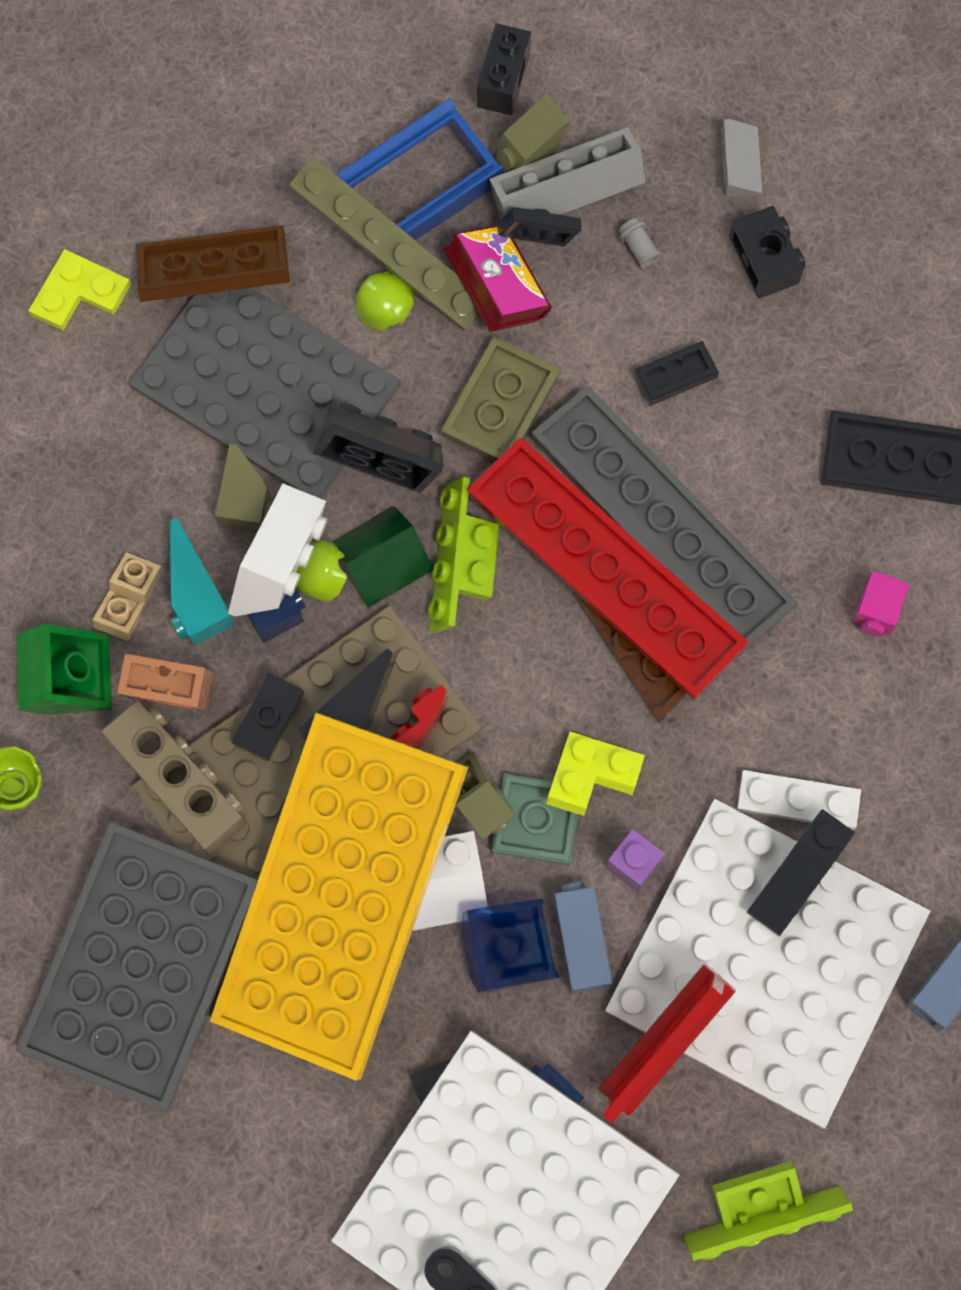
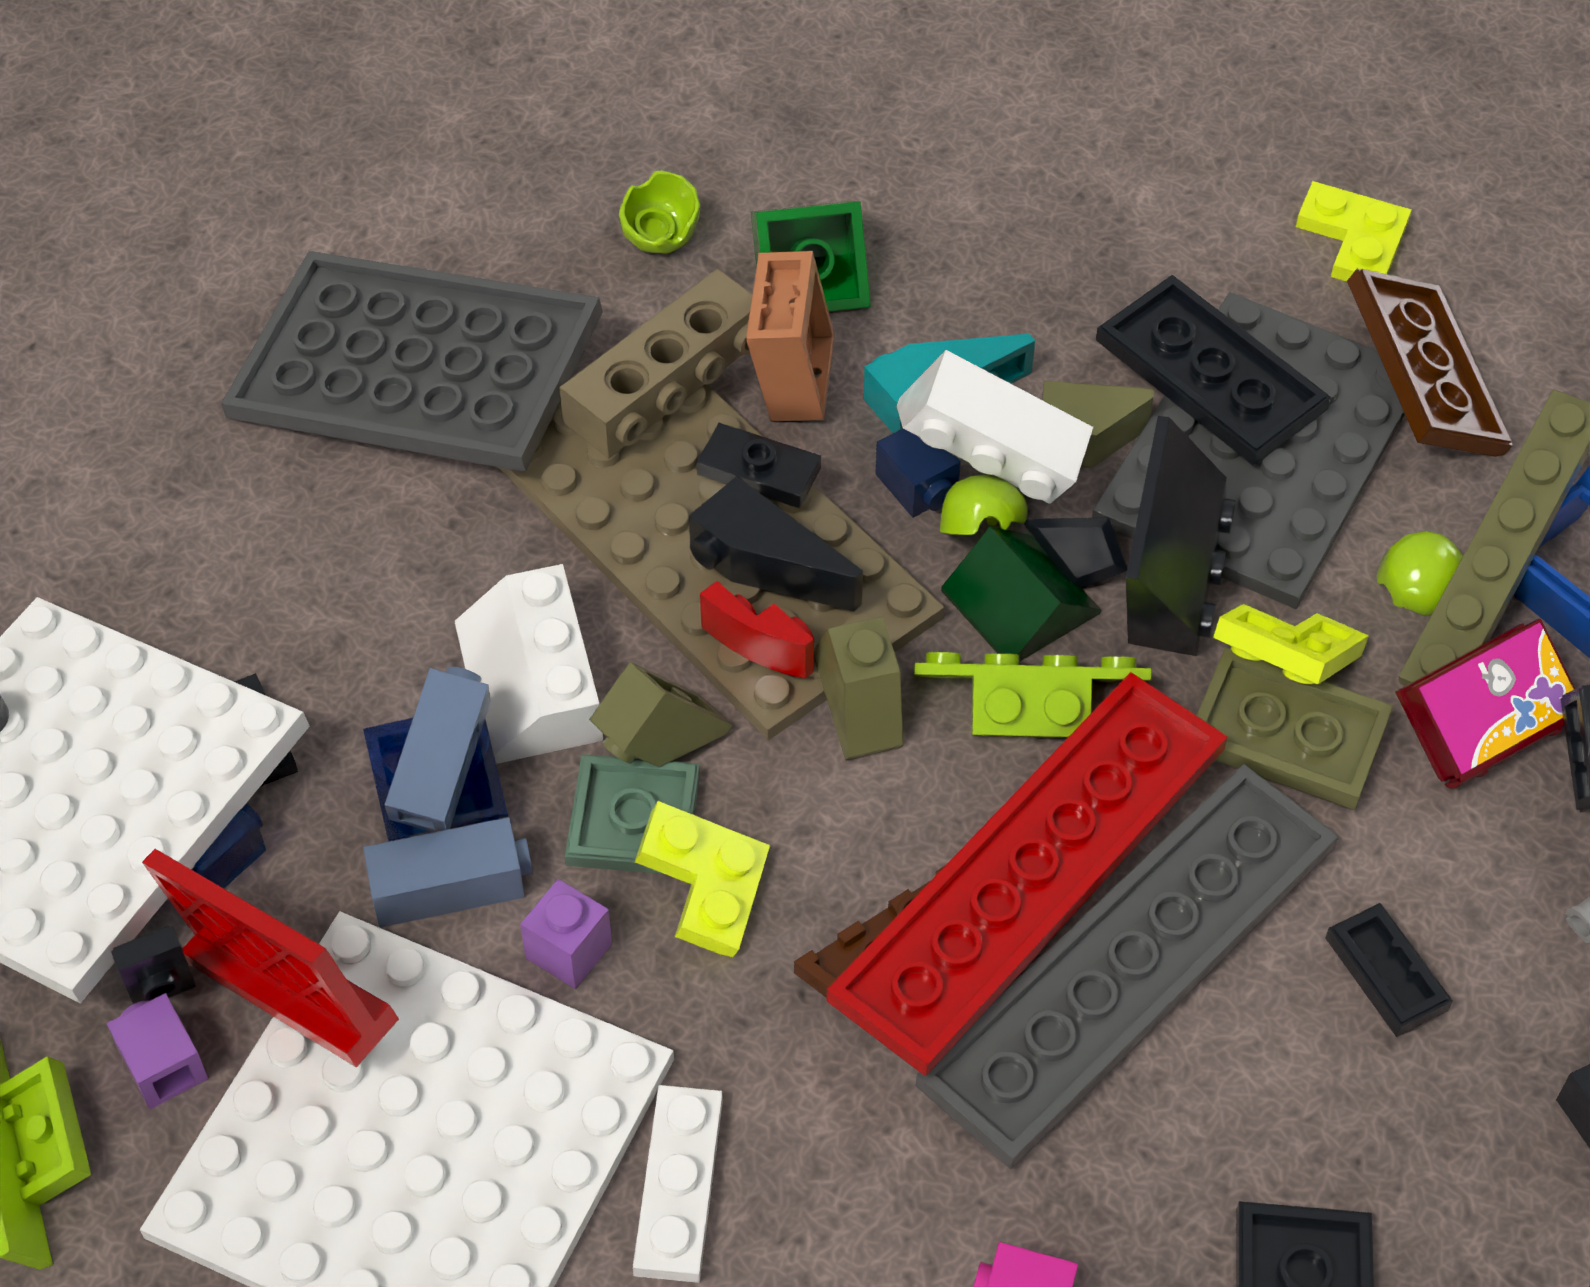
camera: 85 degrees right, 20 degrees down
(127, 596) = (917, 319): tan slope -> none
(208, 403) = (1213, 369): none -> black tile
(338, 895) = (504, 542): yellow plate -> none
(351, 511) = (1080, 547): none -> black piece
(452, 383) = (1303, 651): none -> neon yellow plate
(459, 661) = (862, 686): none -> olive slope
(510, 936) = (438, 749): none -> sand blue brick
(658, 1124) = (153, 966): none -> black plate
(704, 1125) = (157, 1050): none -> medium lavender brick
(800, 872) = (552, 1163): black slope -> none

